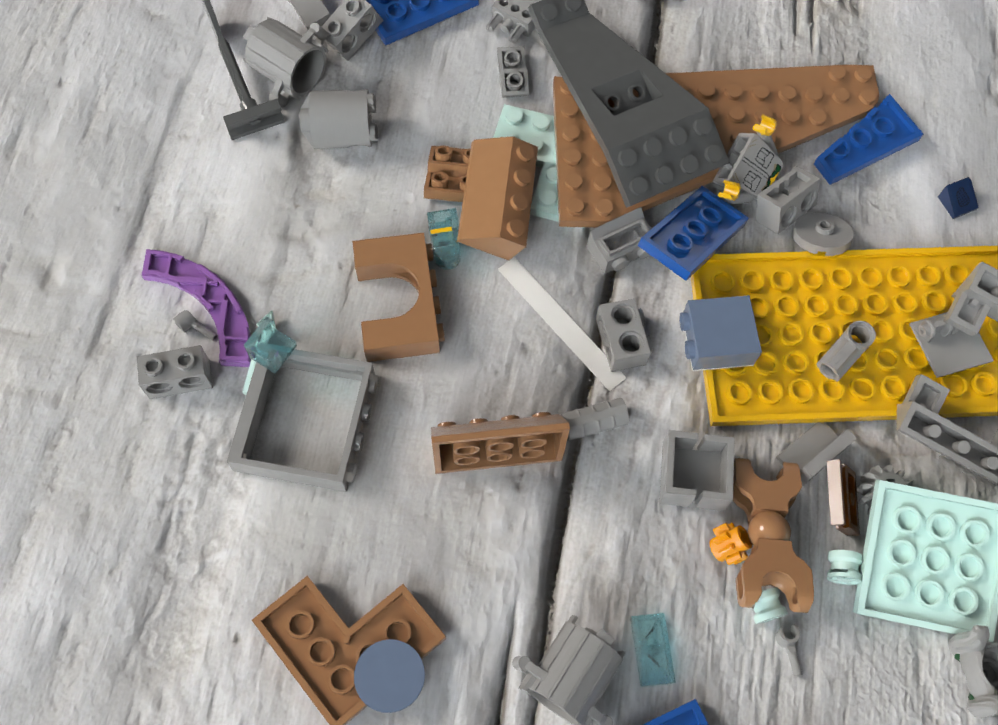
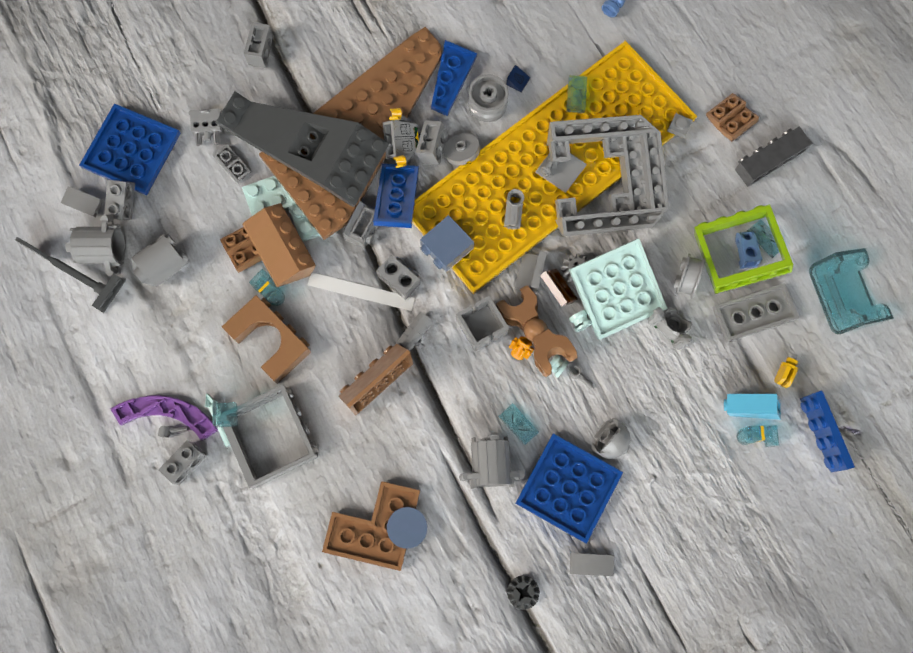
camera: 35 degrees left, 10 degrees up
(902, 194) = (488, 98): none -> light grey wheel

